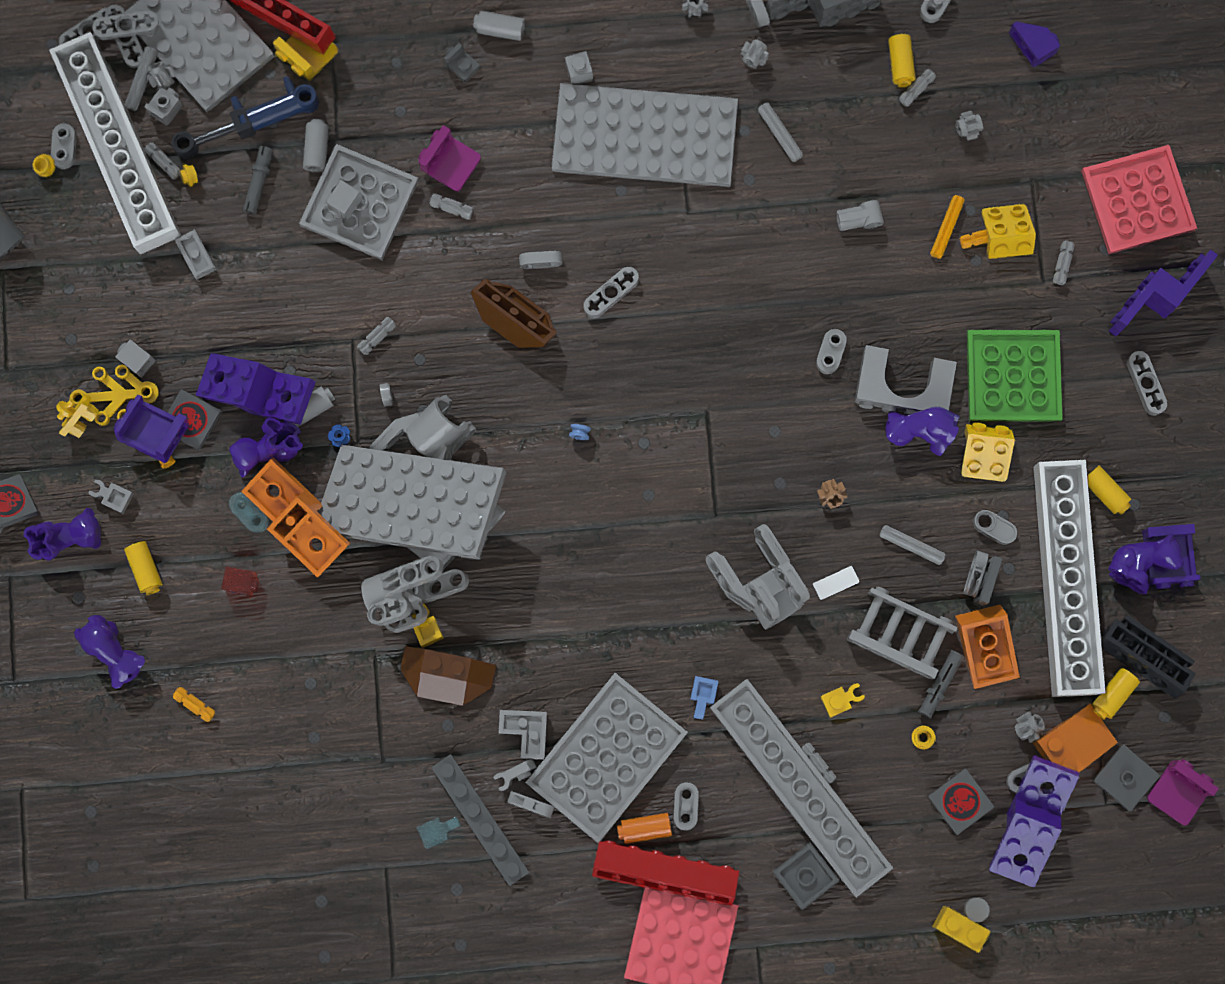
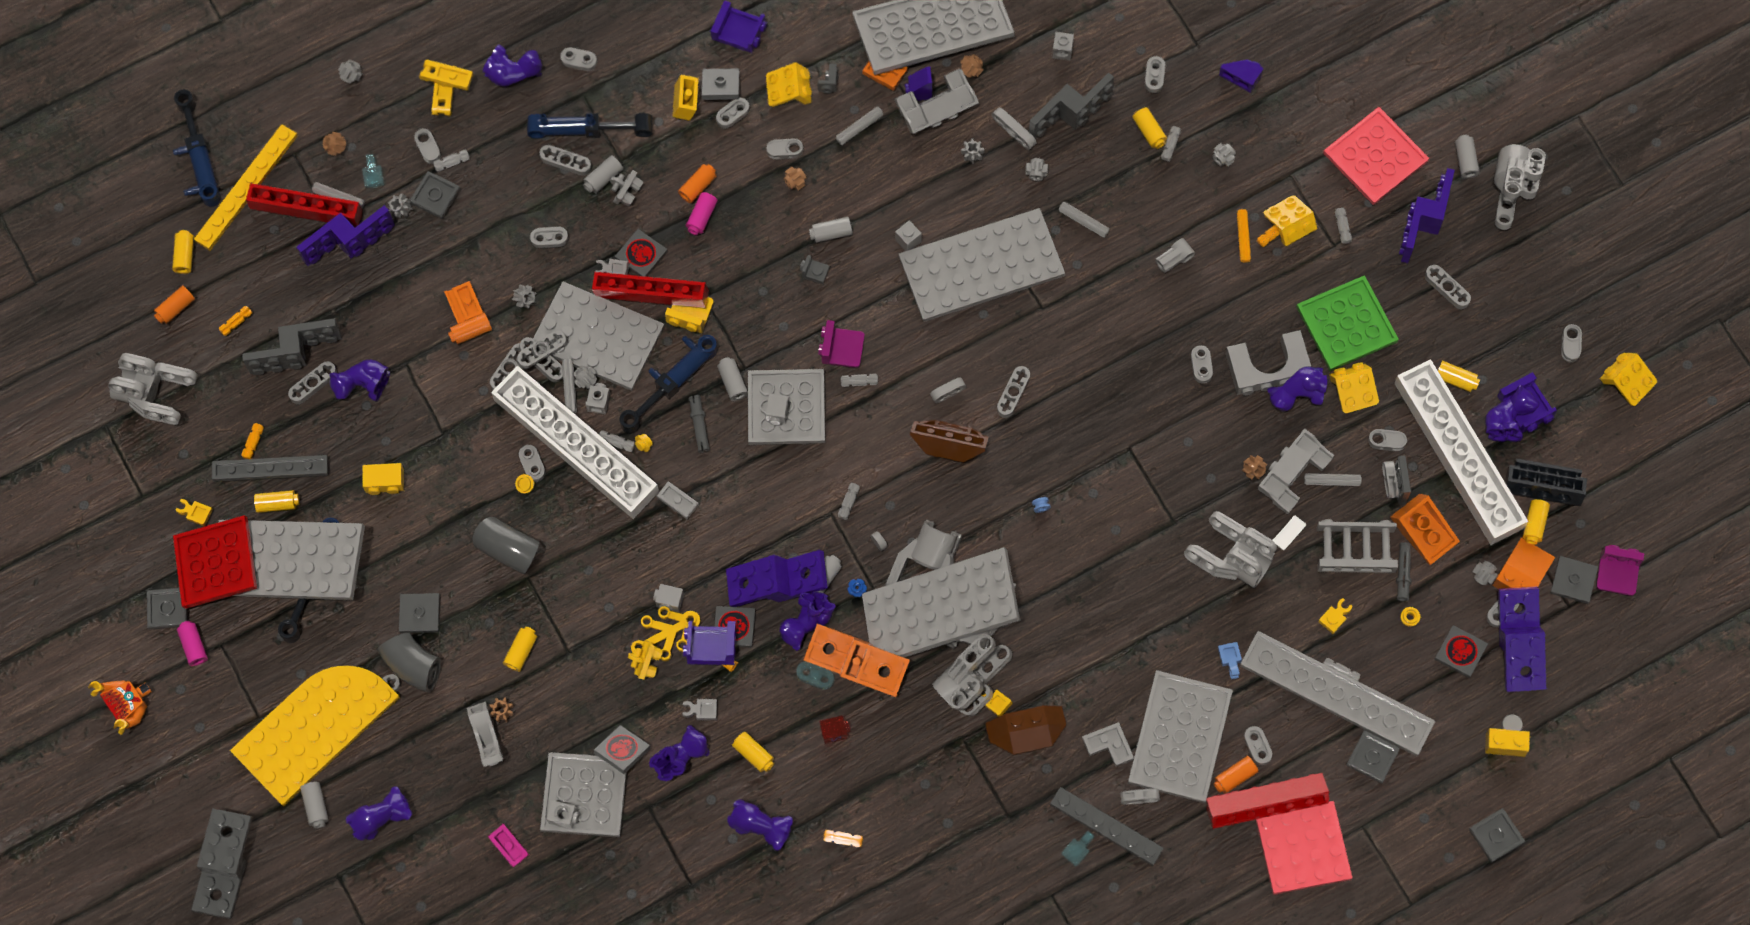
camera: 25 degrees left, 10 degrees down
(520, 771) = (1120, 774): light grey plate -> none
(875, 508) = (1293, 461): none -> light grey bracket

